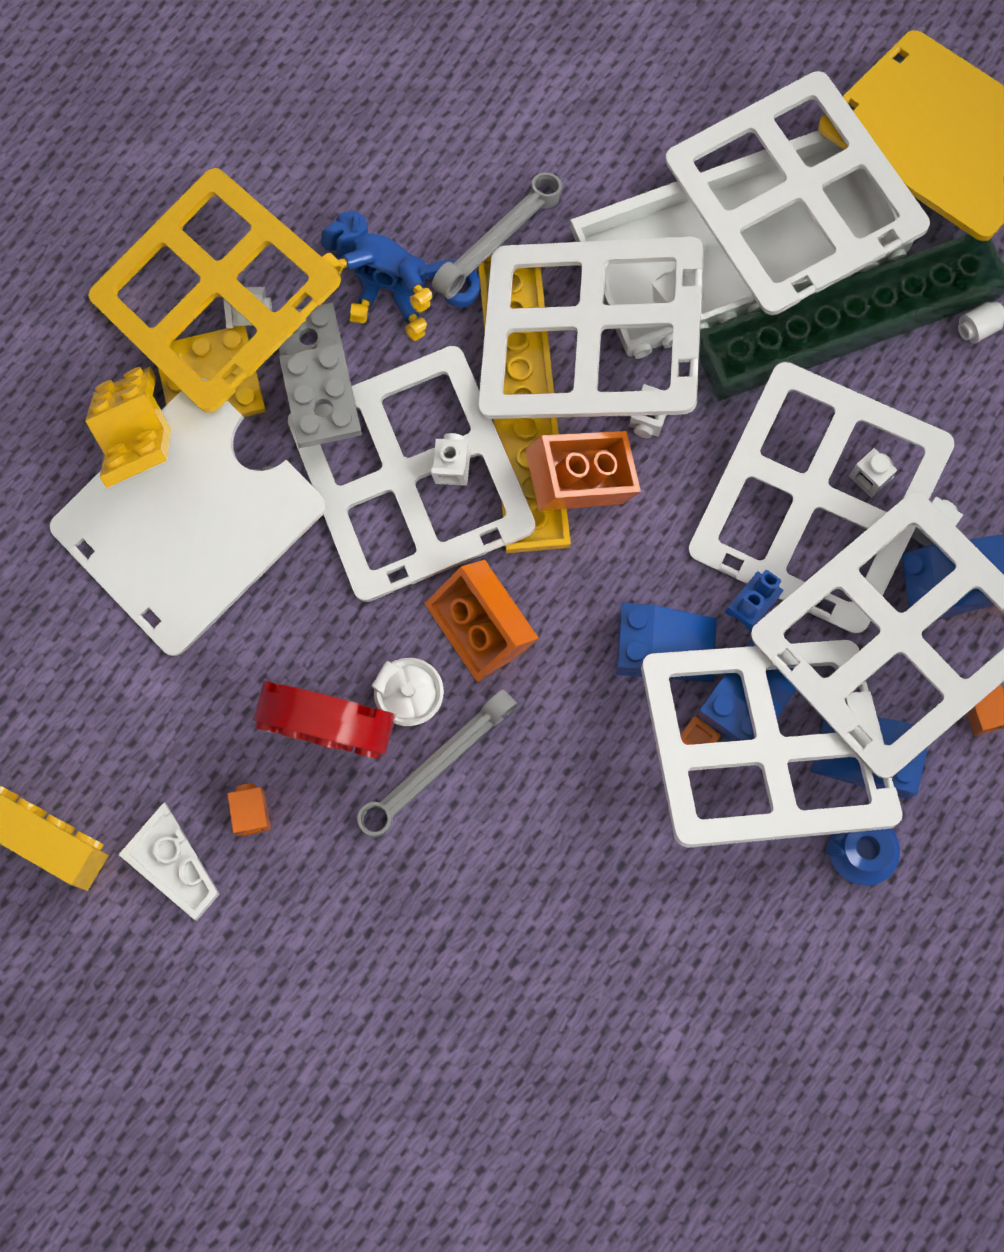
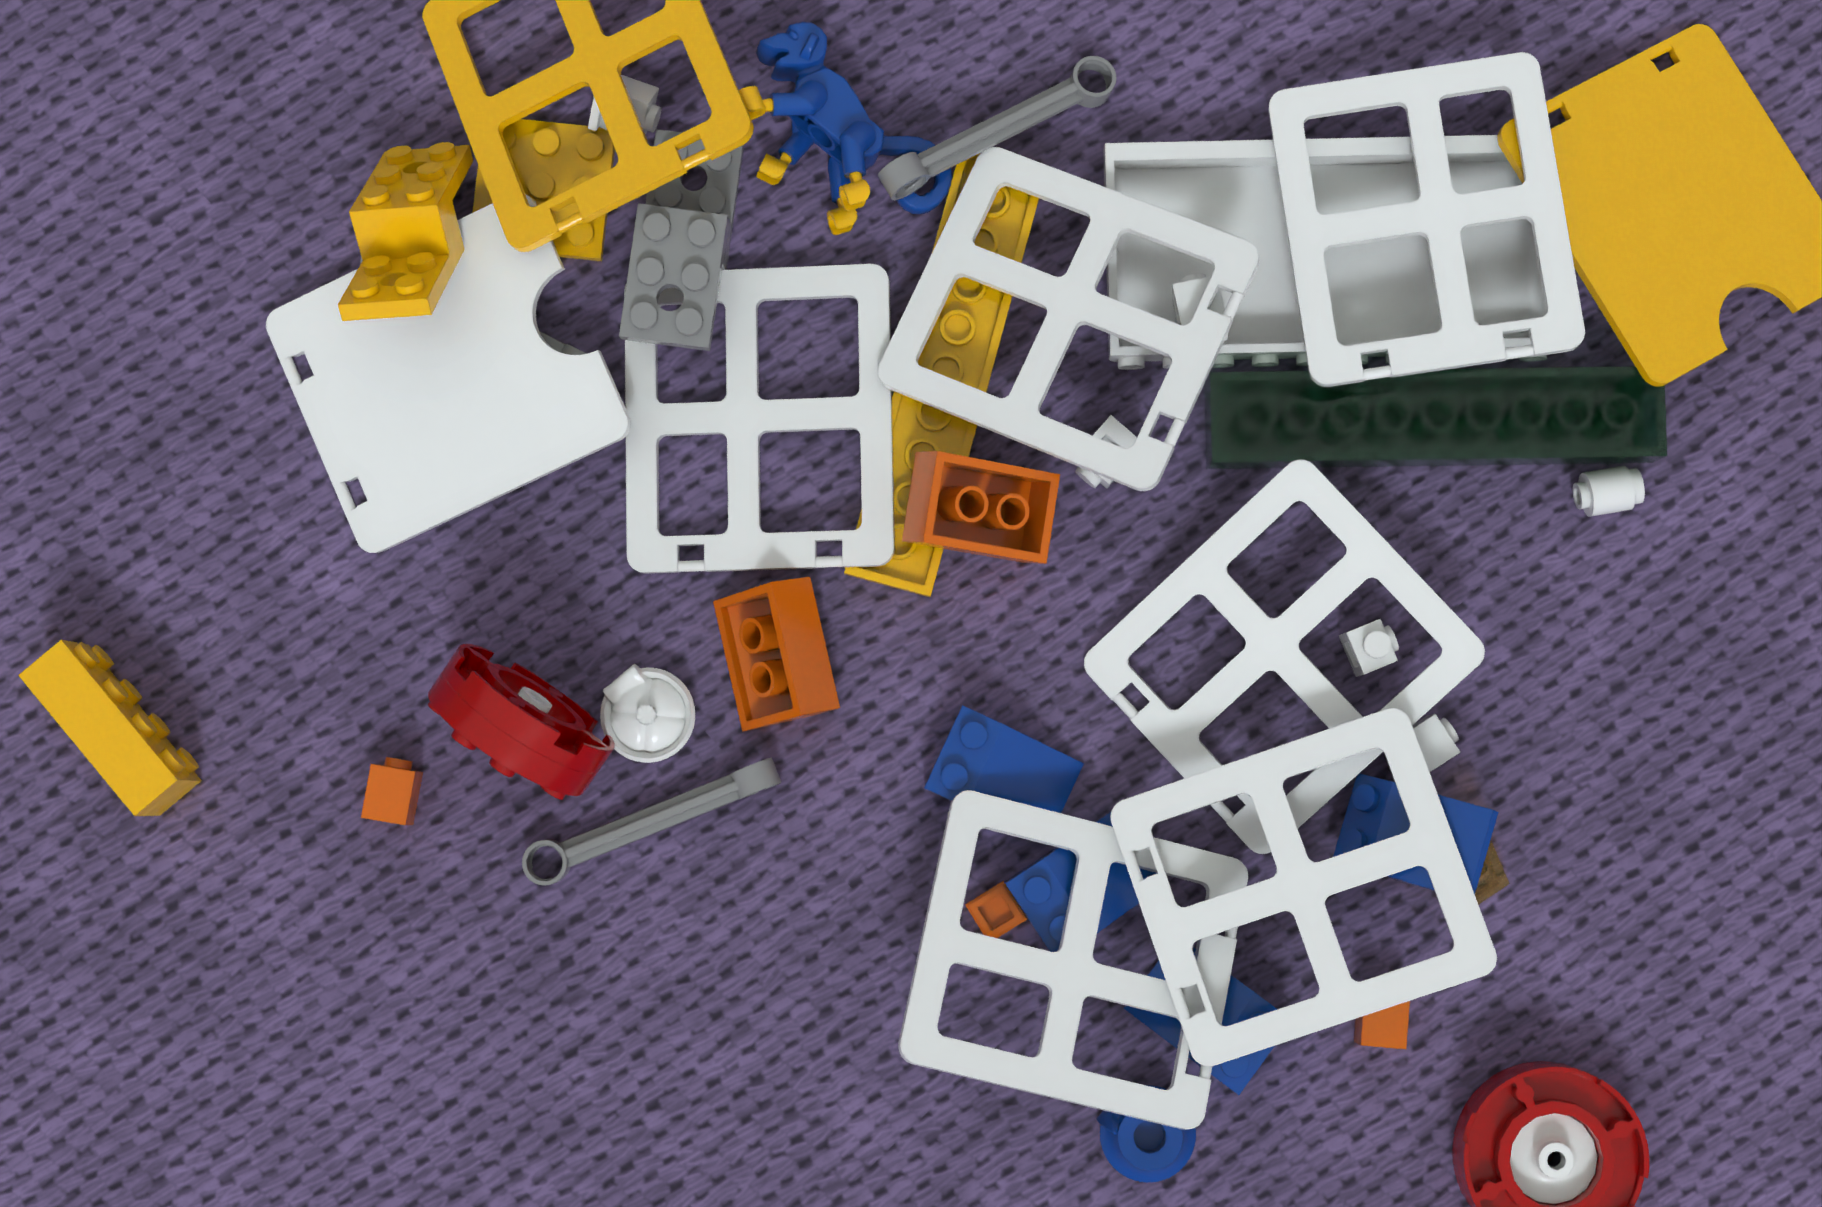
camera: 25 degrees right, 10 degrees up
(170, 863) = (273, 822): white wing -> none
(453, 470) = (819, 444): white brick -> none
(755, 599) = (1138, 763): blue hips -> none

